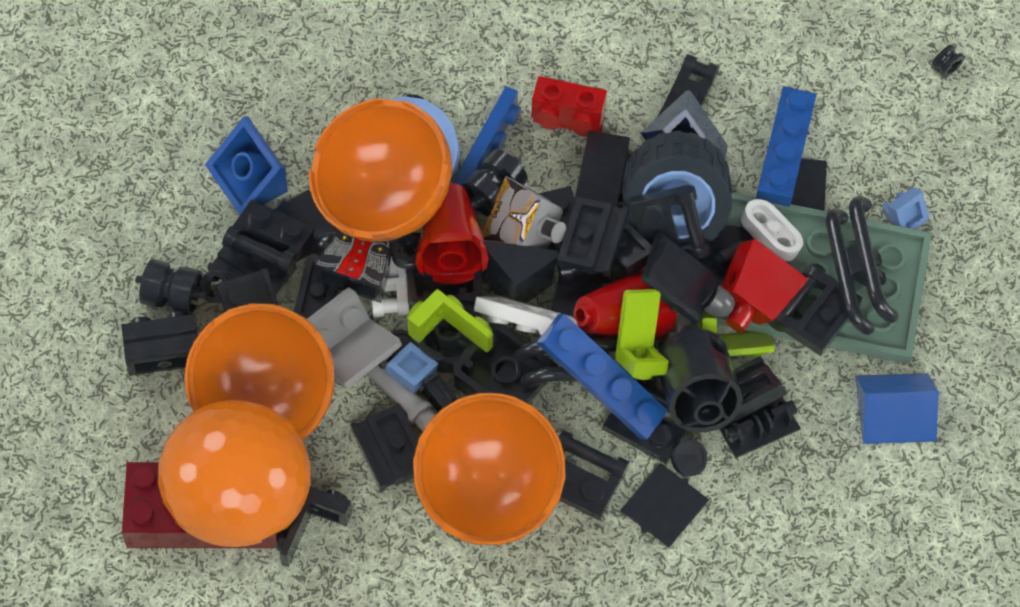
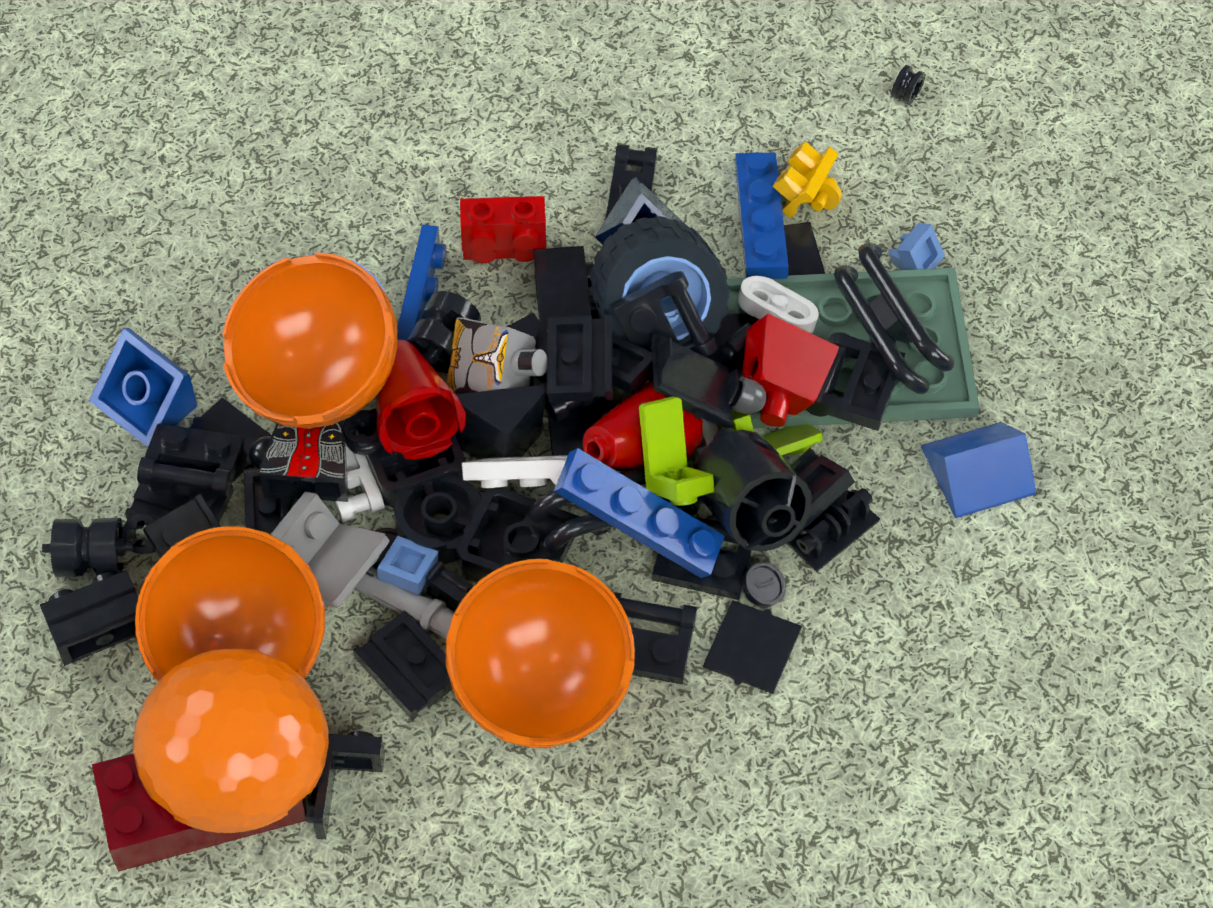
camera: 15 degrees left, 5 degrees down
(428, 314) = (434, 483): lime bracket -> none
(837, 129) = (813, 184): none -> yellow hips

